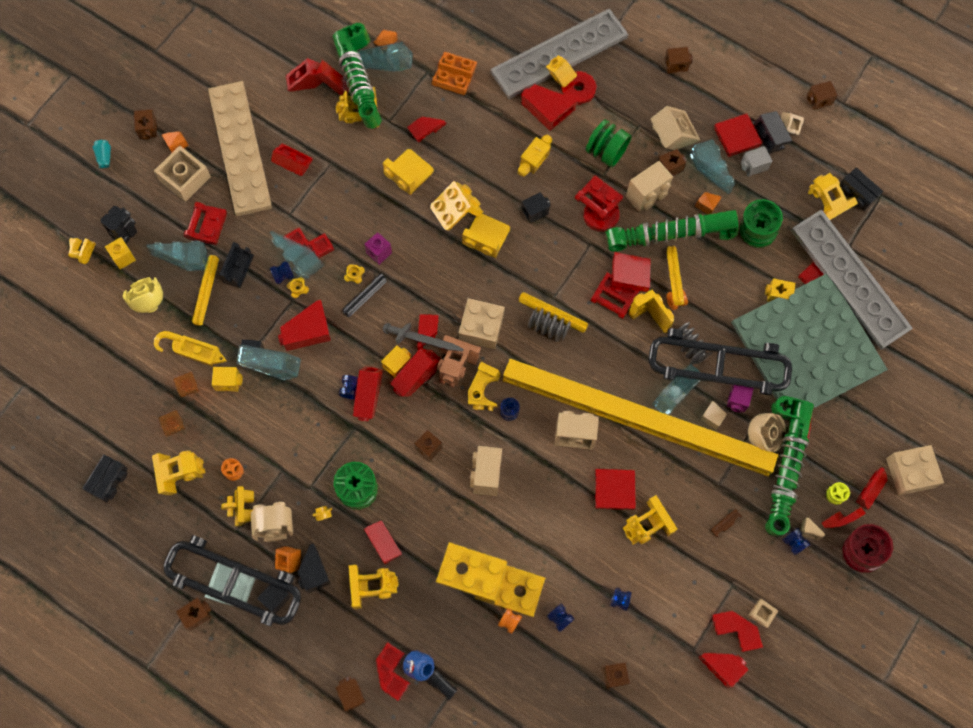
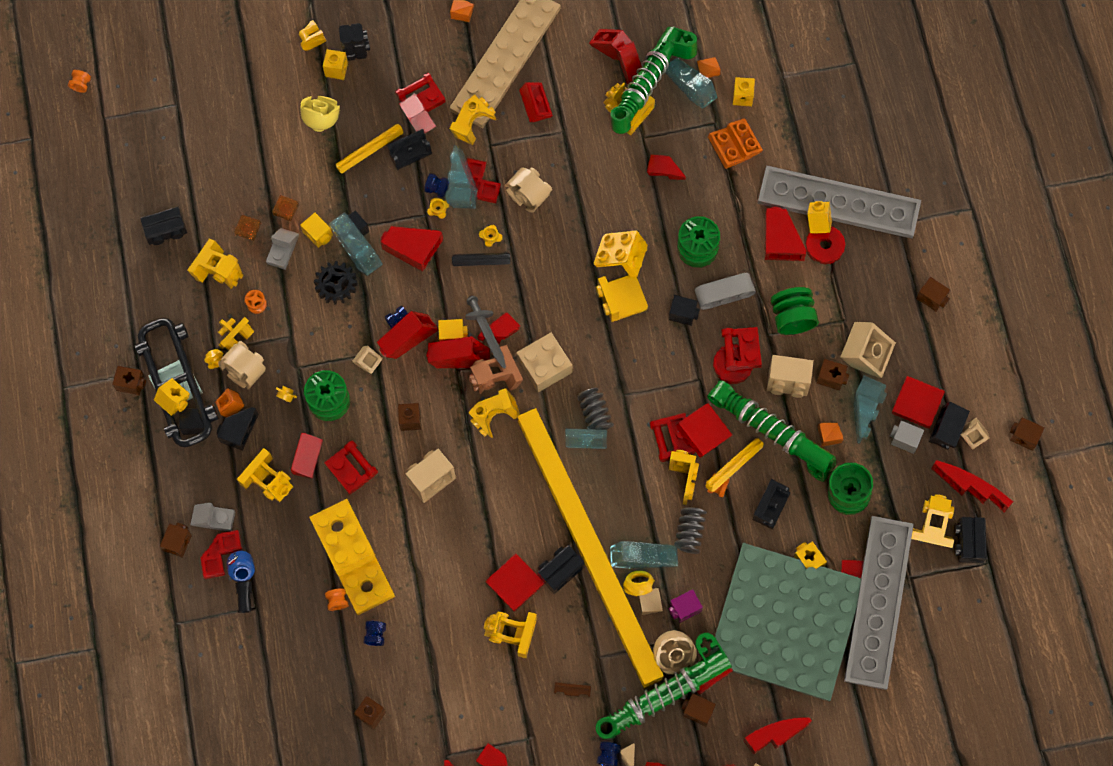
camera: 50 degrees right, 0 degrees up
(182, 173) = (439, 41): tan brick -> none
(188, 256) = (381, 109): clear light blue slope -> none
(191, 348) = (315, 184): yellow plate -> none
(212, 415) = (282, 248): none -> light grey slope
(217, 236) = (417, 114): none -> slope
(243, 537) = (213, 358): none -> yellow plate
(244, 593) = (172, 397): none -> yellow brick
(257, 196) = (462, 126): none -> yellow tile
(272, 397) = (344, 279): none -> black gear
(350, 218) = (528, 188): none -> tan brick
(355, 435) = (367, 359): none -> tan slope
(359, 651) = (212, 517): none -> light grey slope
(378, 248) = (527, 231): magenta brick -> none
(408, 171) = (614, 191): yellow bracket -> none
(420, 526) = (345, 471): none -> red plate
(424, 33) = (743, 88): none -> yellow brick
(500, 162) = (698, 251): none -> green wheel
(509, 413) = (499, 451): clear blue wheel -> none
(533, 302) = (605, 388): yellow axle -> none
(535, 155) = (726, 267): yellow piece -> none
(548, 171) = (725, 291): none -> light grey beam
(564, 347) = (586, 438): none -> clear light blue plate
(576, 430) = (527, 508): tan brick -> none
(621, 599) = (432, 664): clear blue wheel -> none
(636, 450) = (560, 569): none -> black brick
(700, 415) = (638, 589): none -> yellow piece
(720, 280) = (771, 504): none -> black hinge
(769, 352) = (739, 592): black bar -> none
(819, 157) = (964, 481): none -> red slope
(819, 455) = (698, 709): none -> reddish brown brick
(840, 490) = (683, 748): neon yellow wheel -> none
(880, 424) = (776, 733): none -> red slope

